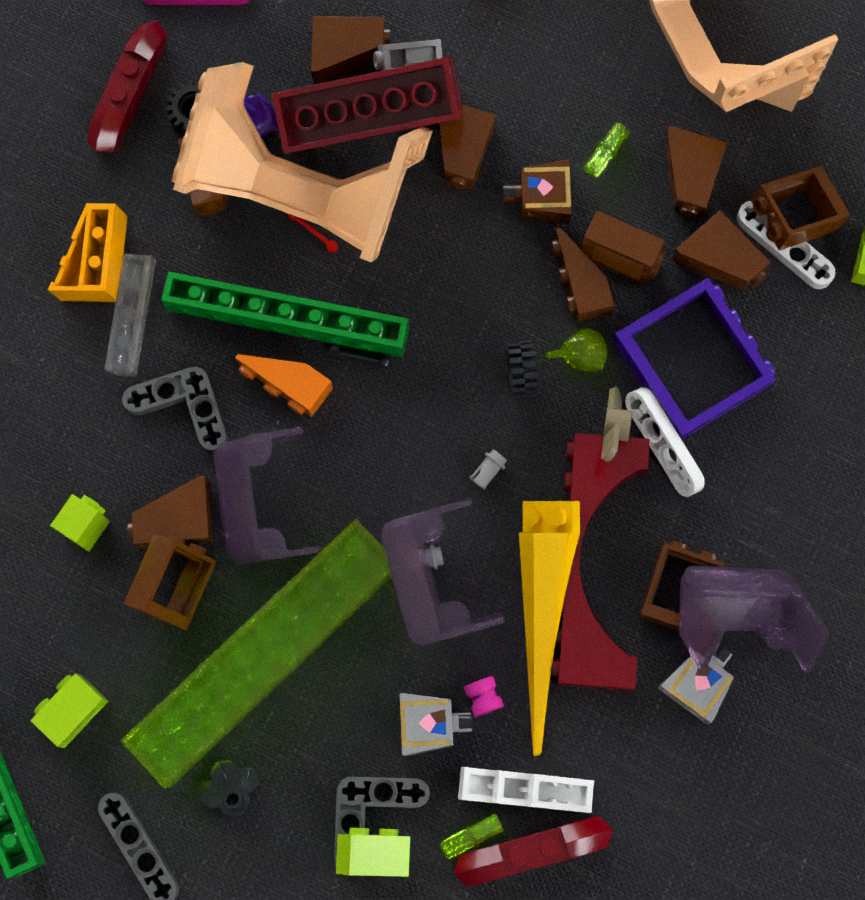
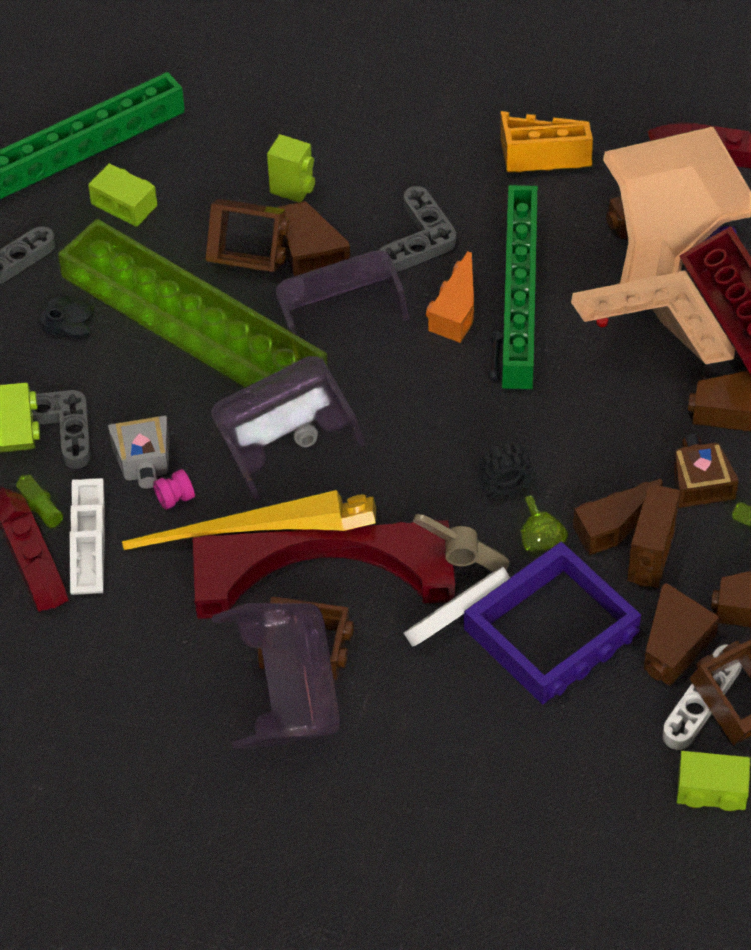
camera: 80 degrees right, 25 degrees down
(130, 315) = (494, 179): clear brick -> none
(488, 469) = (405, 468): light grey pin -> none
(700, 690) = (209, 665): light grey torso -> none

